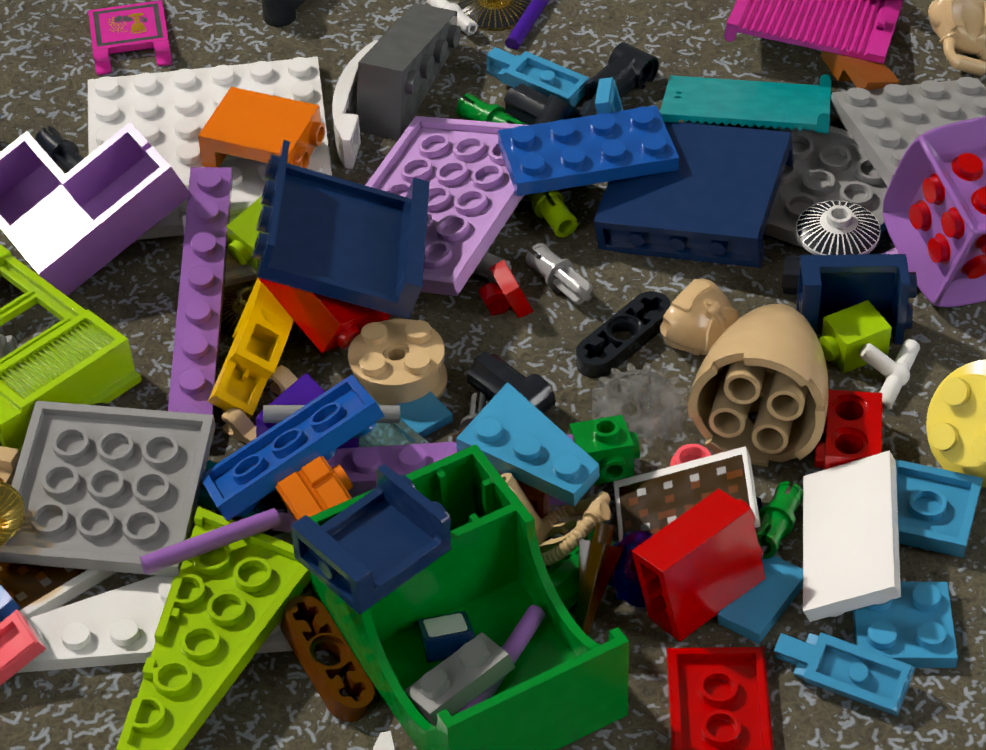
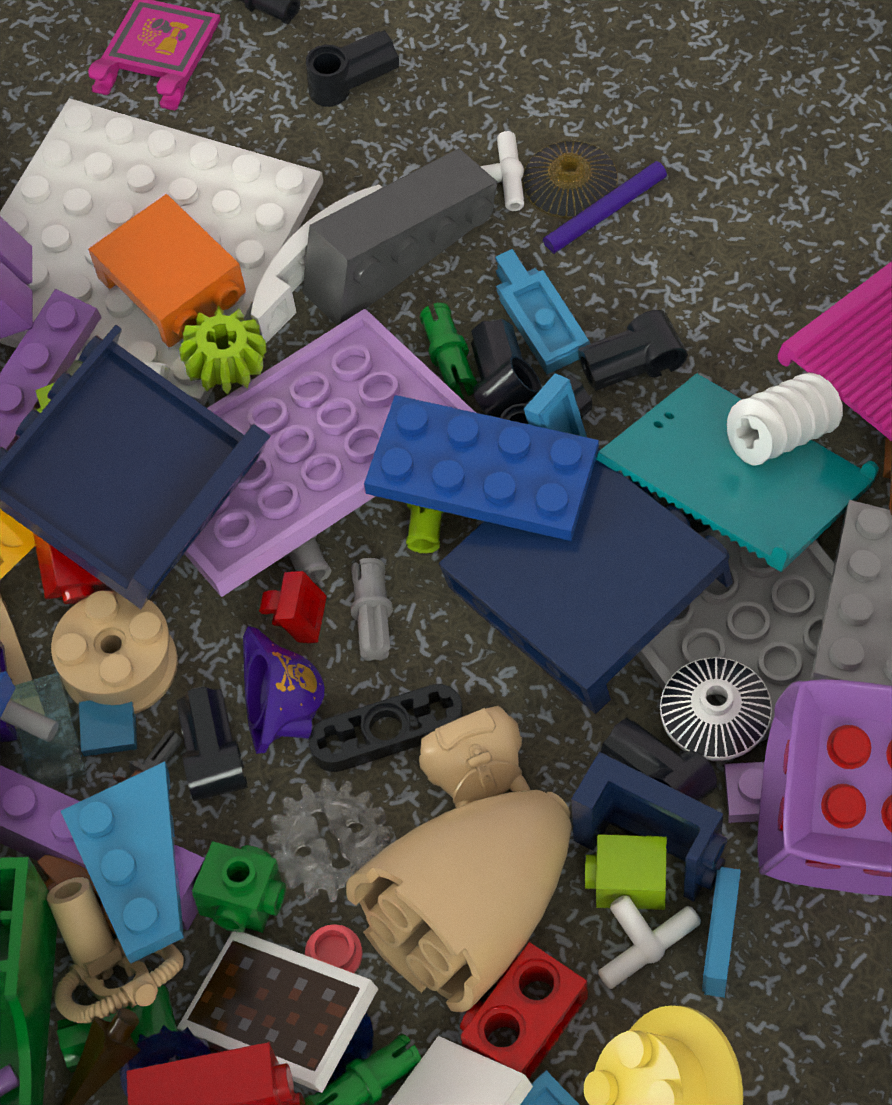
camera: 35 degrees right, 15 degrees up
(342, 158) = (222, 350): none -> lime gear
(530, 338) = (279, 691): none -> dark purple hat
(756, 64) = (783, 418): none -> white piece
(937, 338) = (721, 932): none -> dark azure tile

